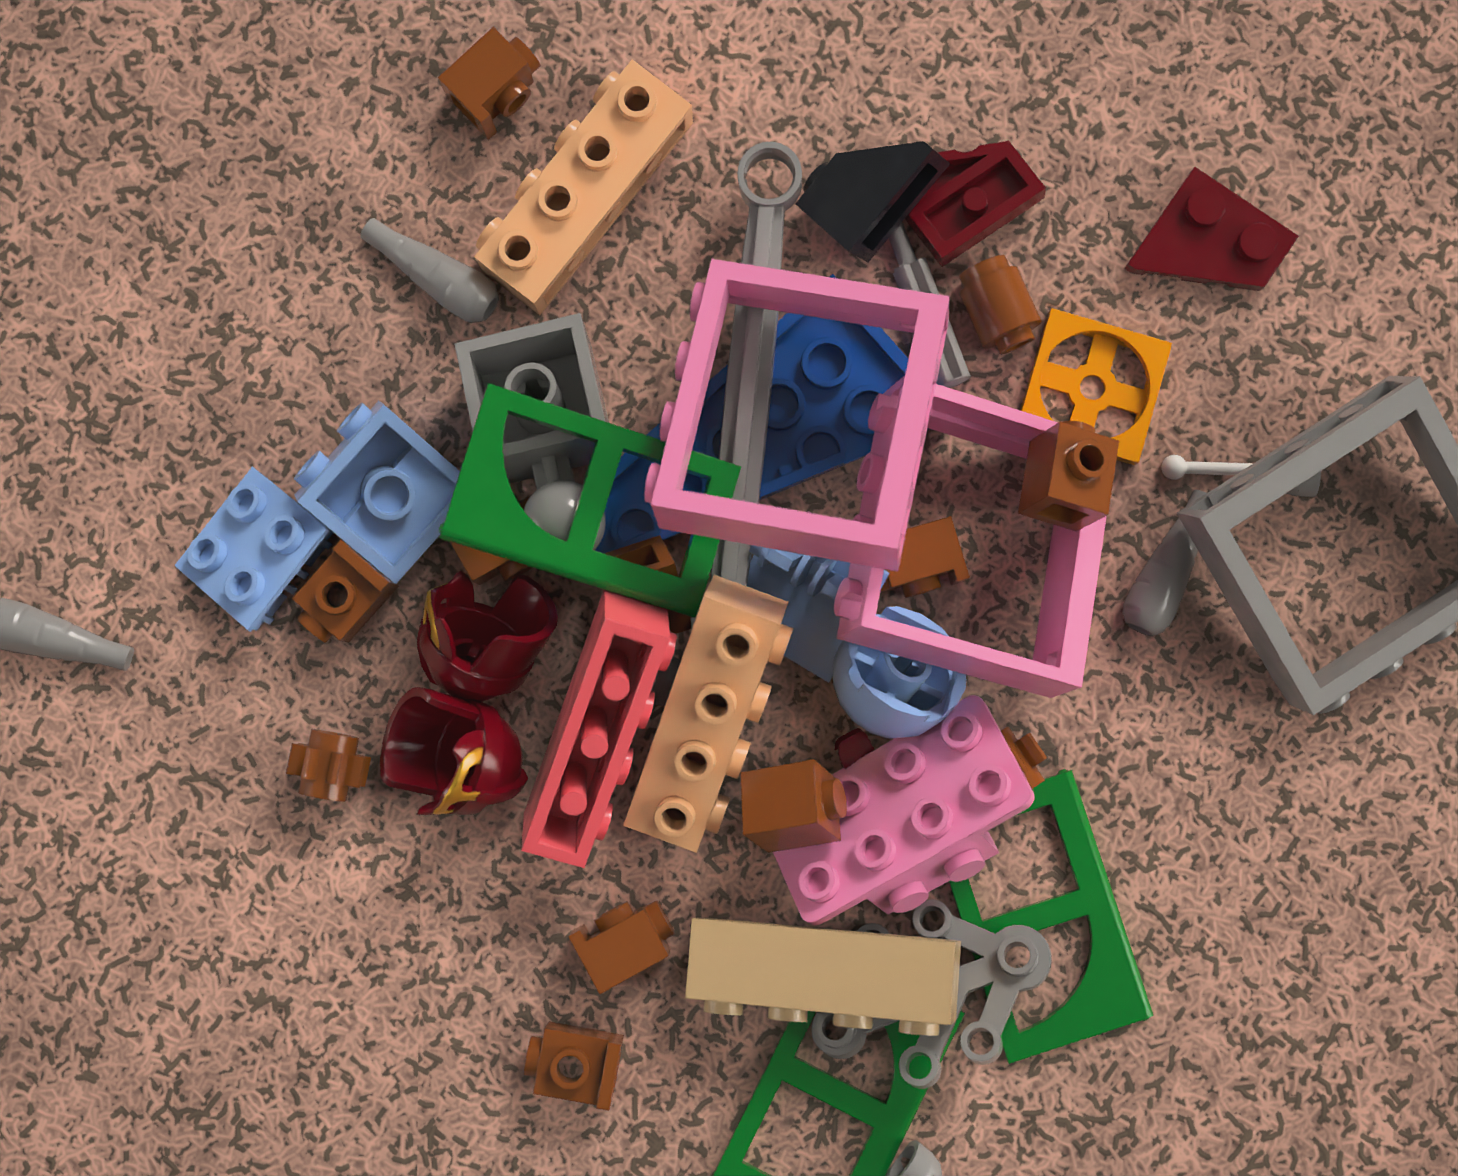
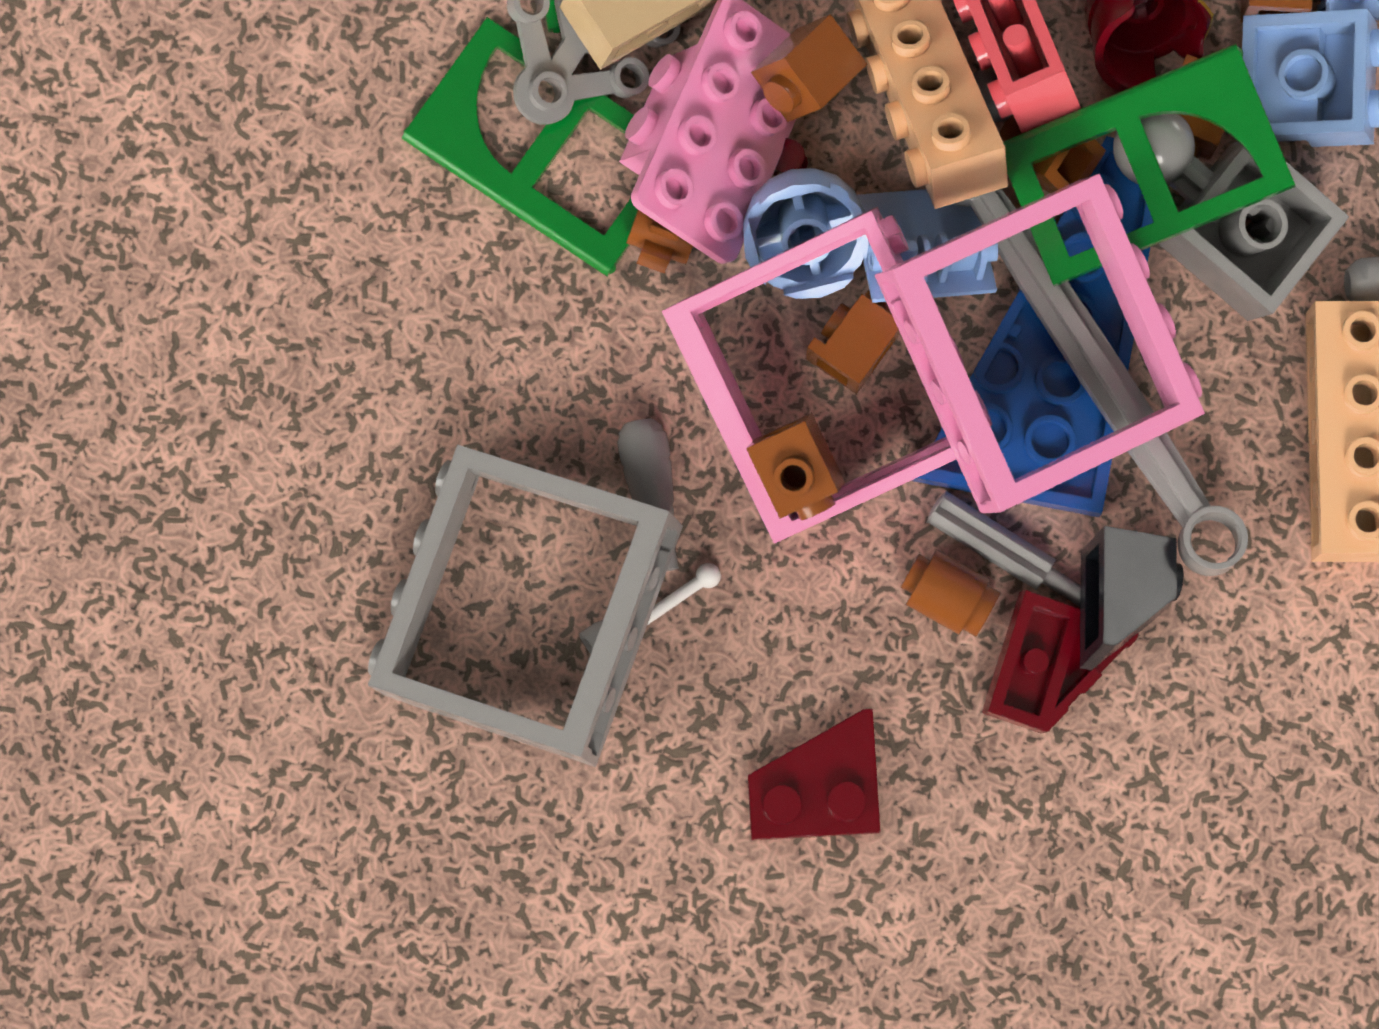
camera: 140 degrees right, 5 degrees down
(1150, 351) = (798, 653): light orange piece -> none

